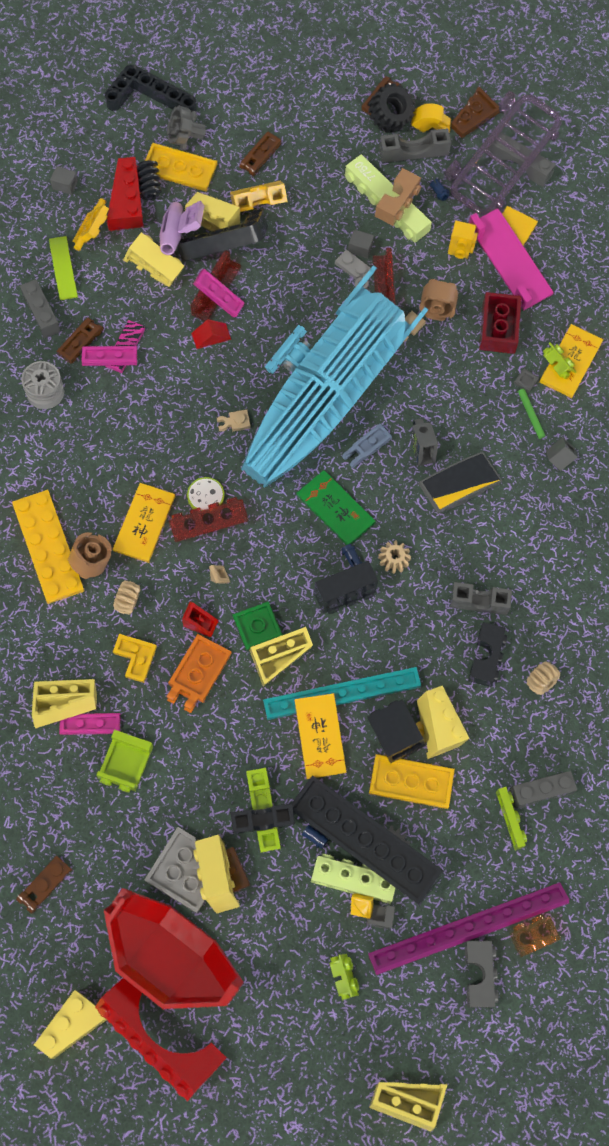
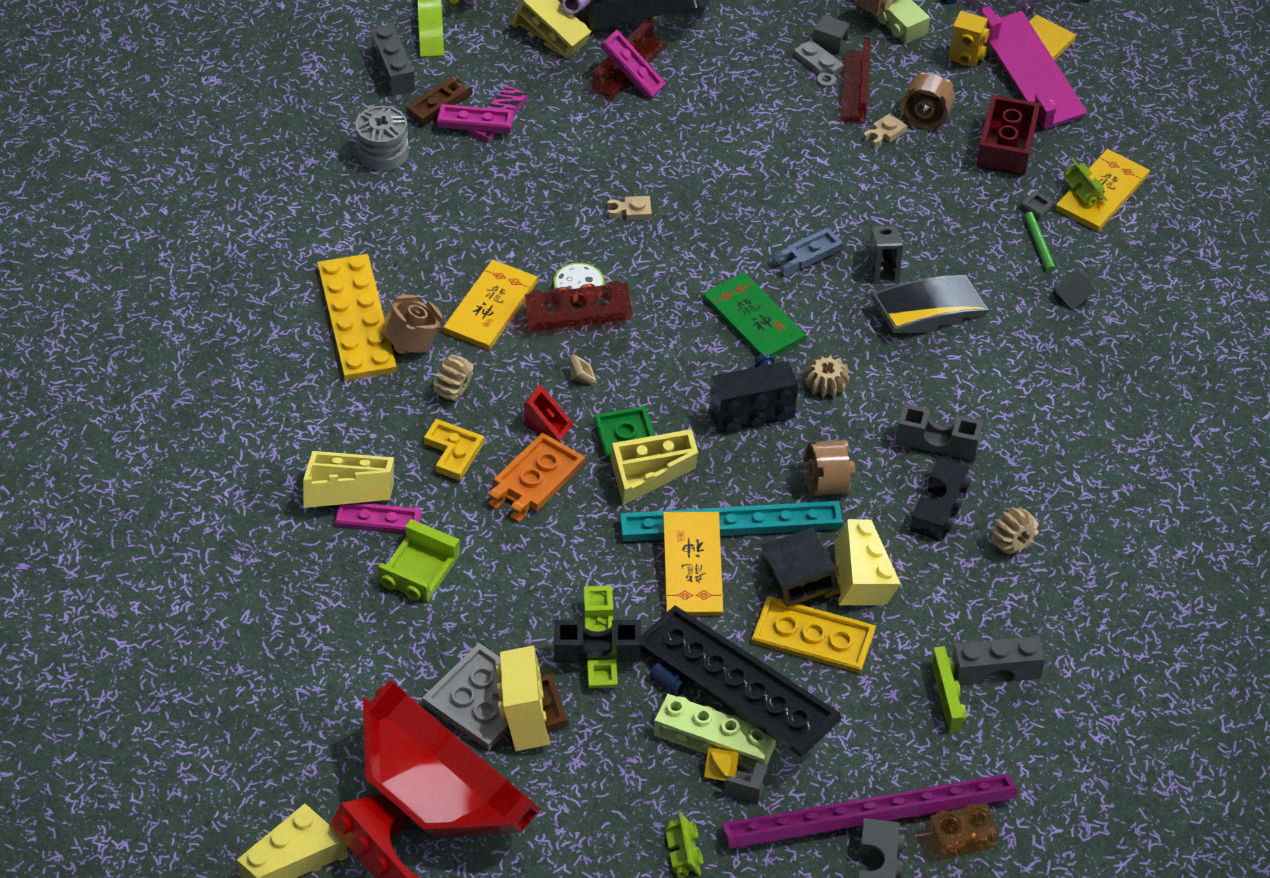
camera: 10 degrees right, 20 degrees down
(44, 884) = (283, 690): reddish brown plate -> none
(210, 333) = (614, 110): red slope -> none
(325, 380) = (759, 165): medium azure piece -> none
(406, 642) = (828, 468): none -> medium nougat brick

